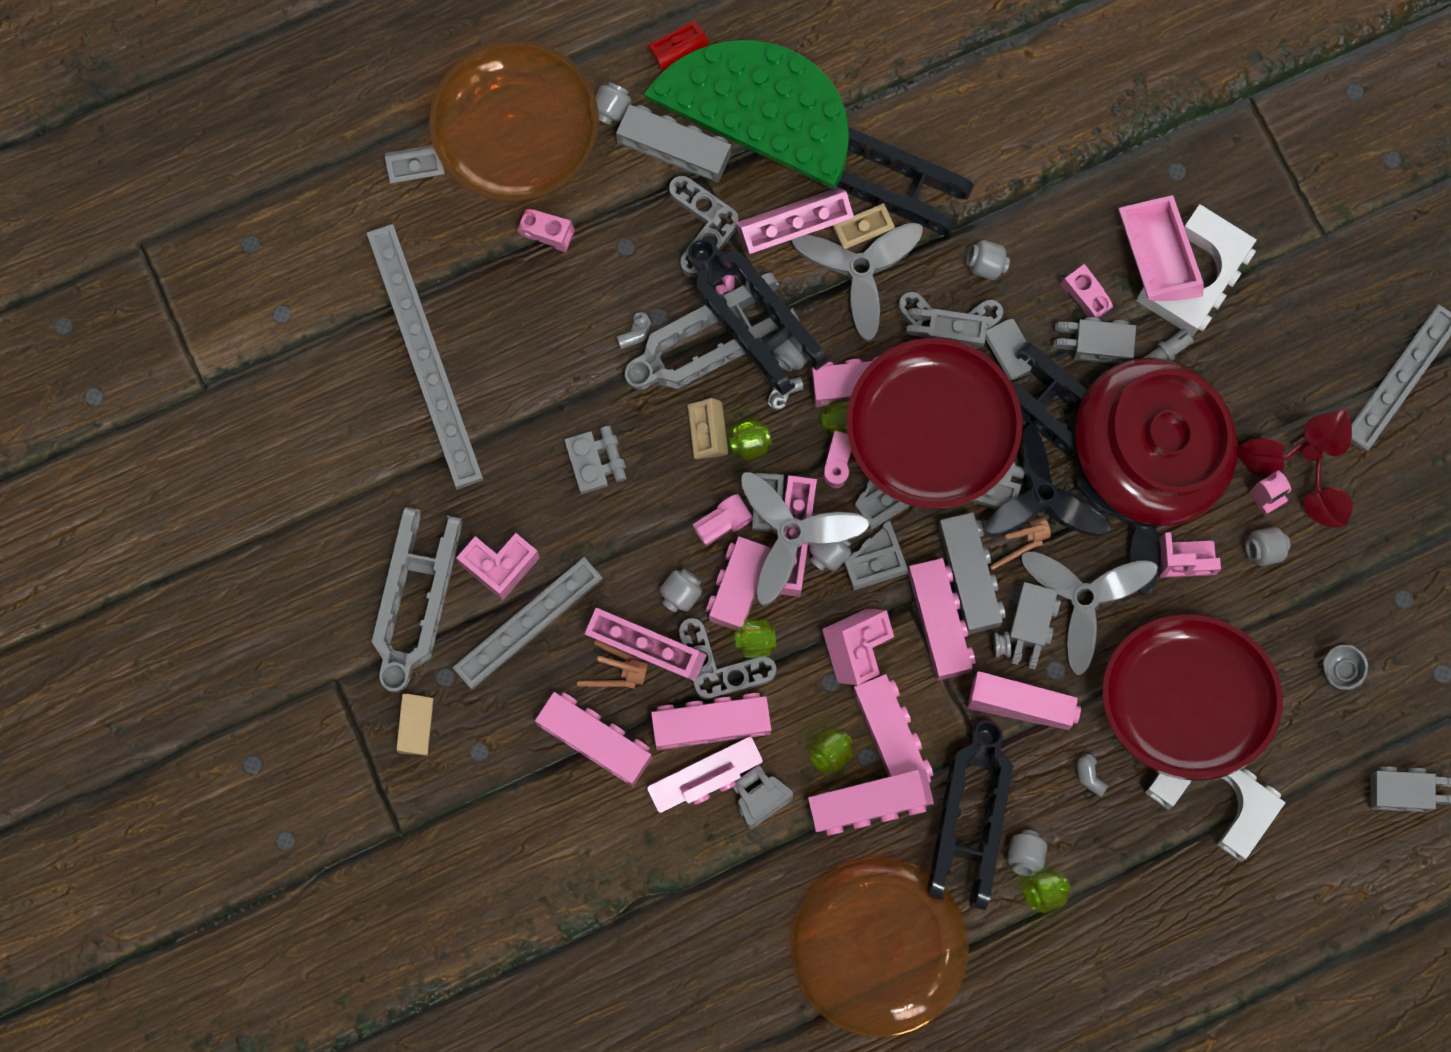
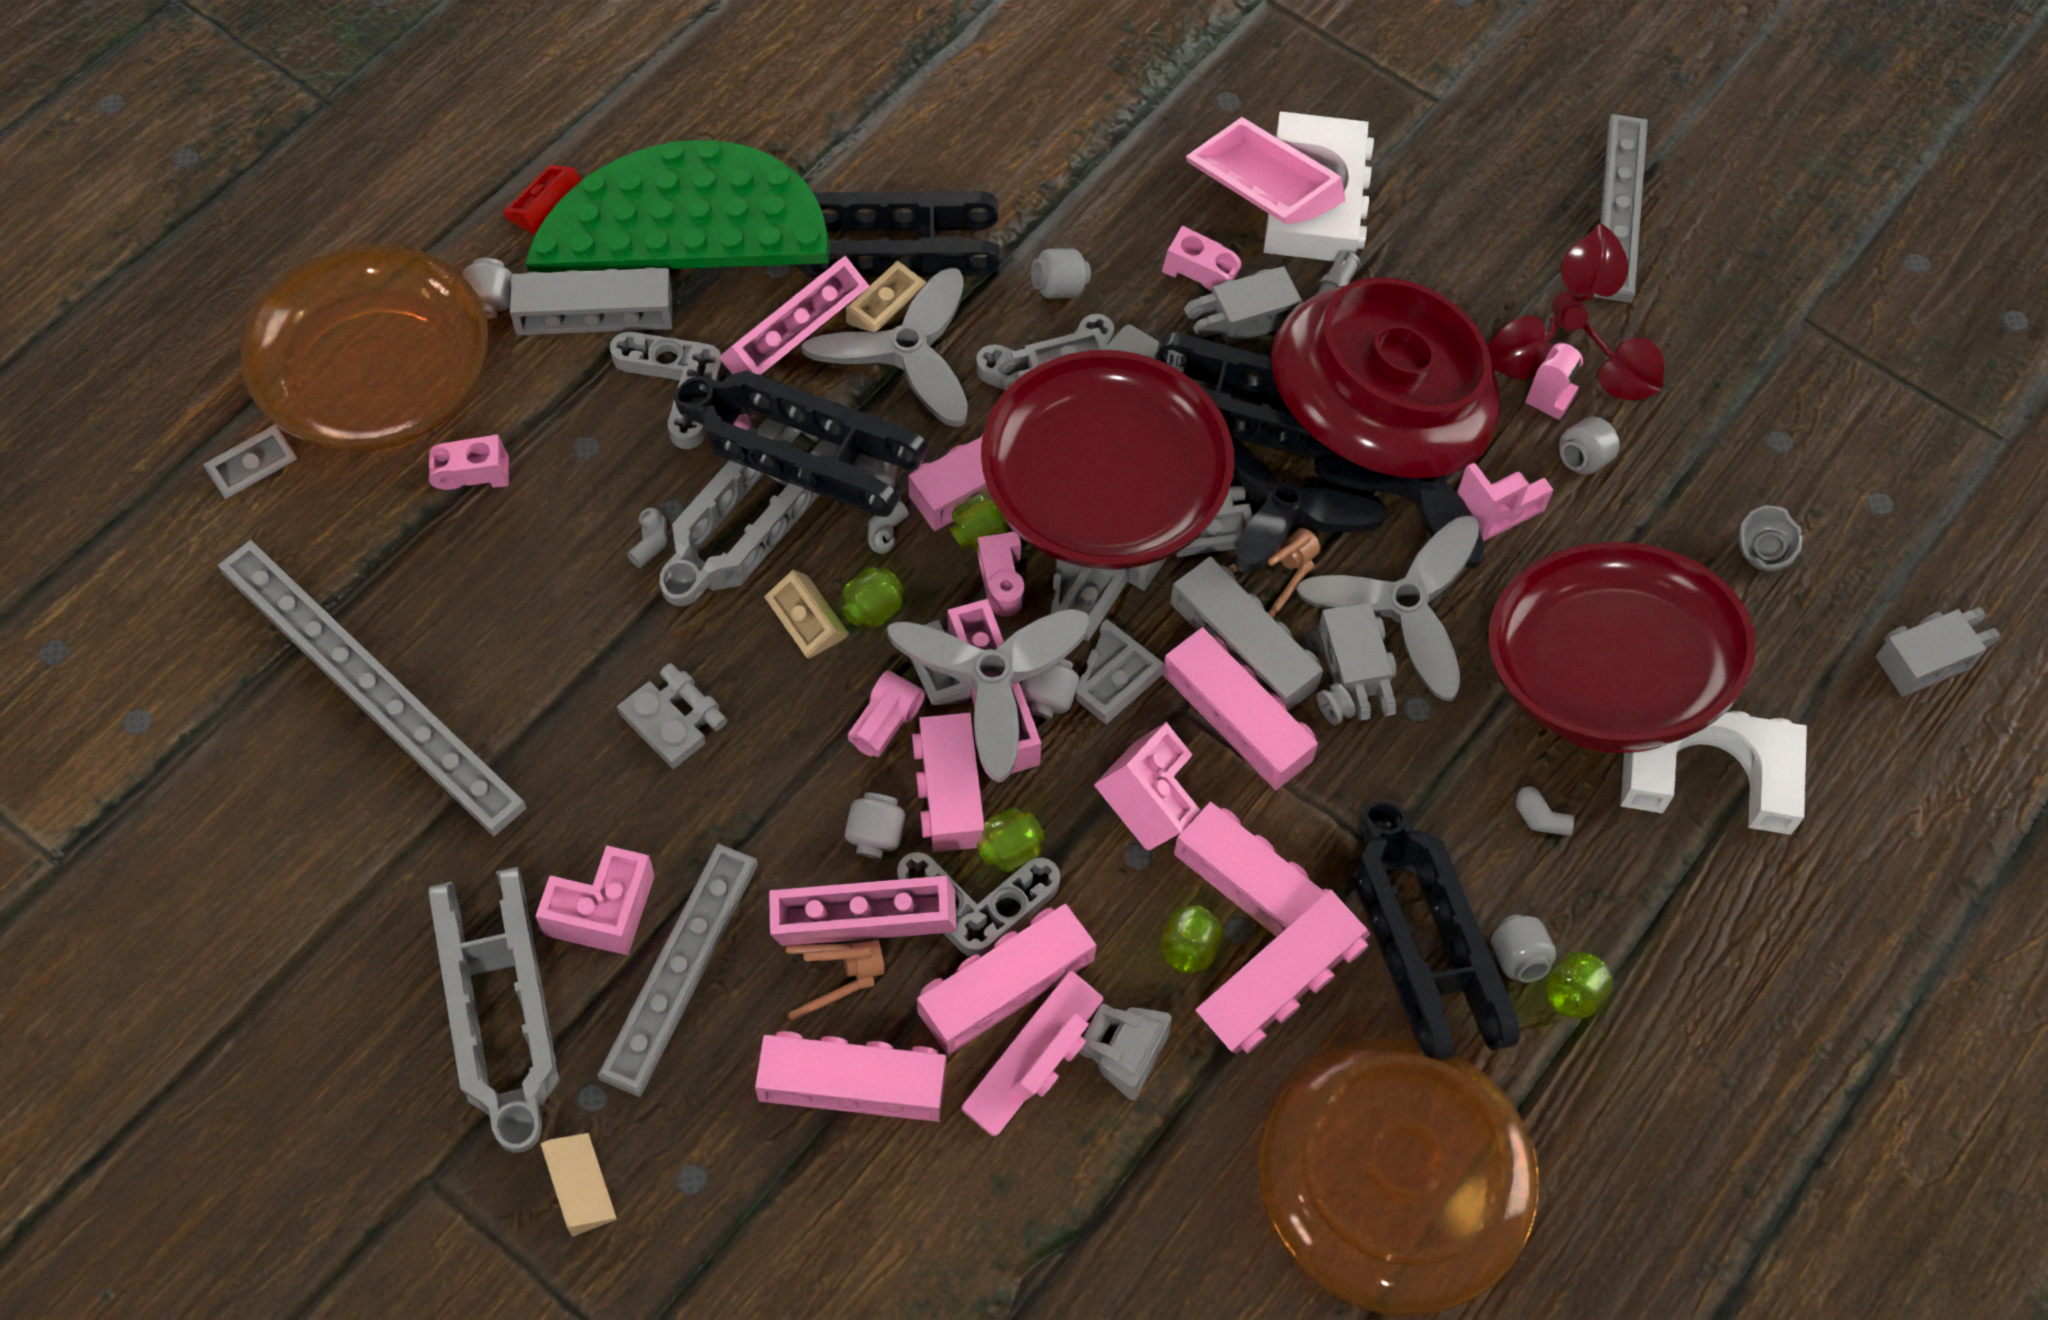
camera: 30 degrees left, 15 degrees down
(1022, 702) = (1401, 758): bright pink slope -> none

